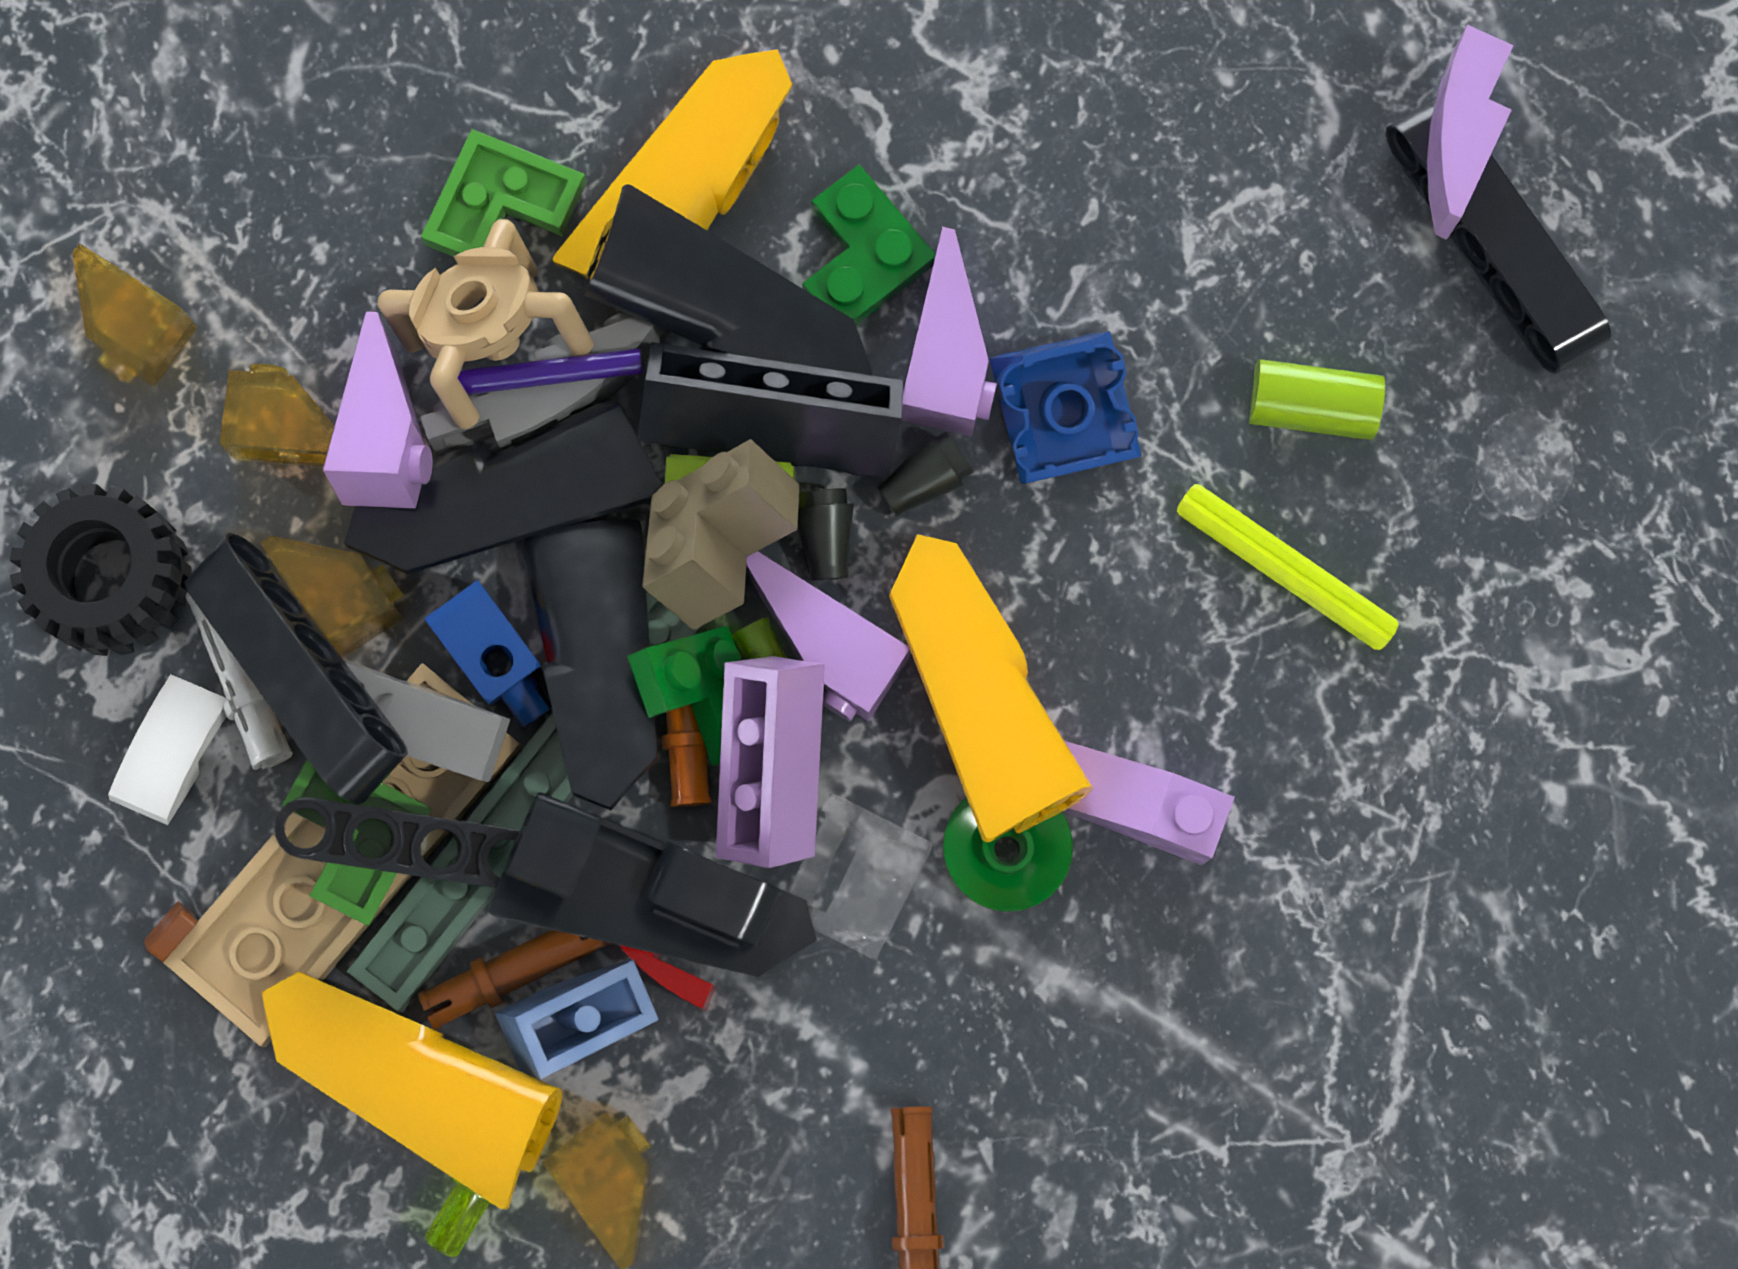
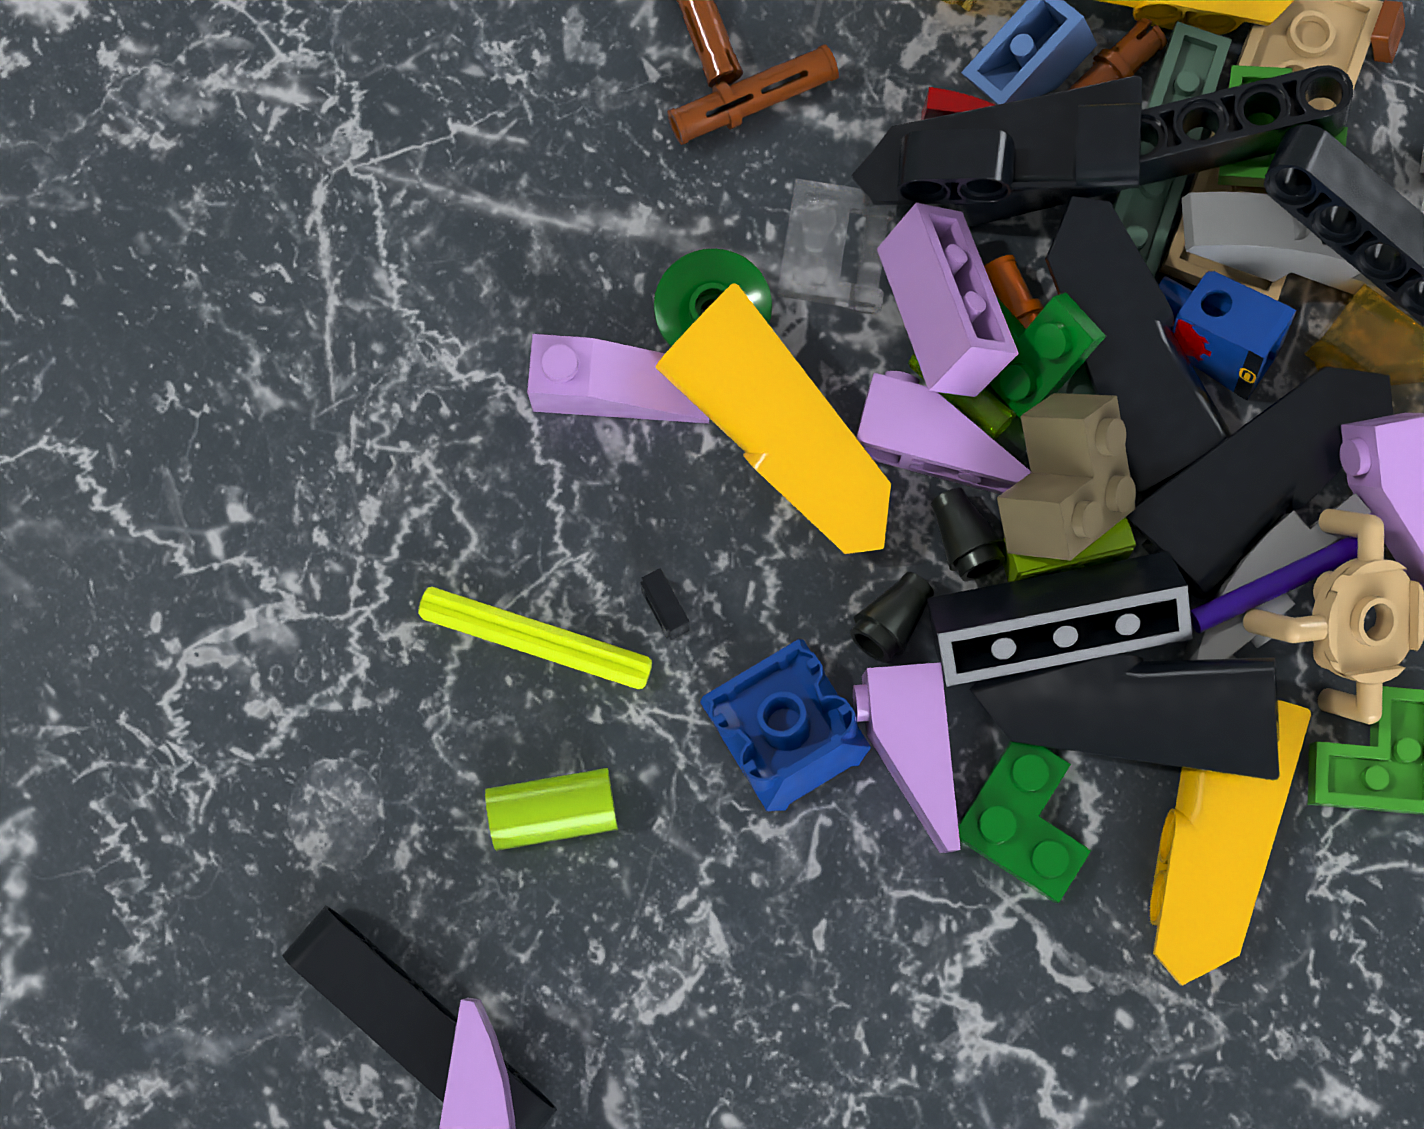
camera: 160 degrees right, 0 degrees up
(888, 1078) = (691, 119): none -> dark orange pin
(1150, 553) = (664, 604): none -> black tile

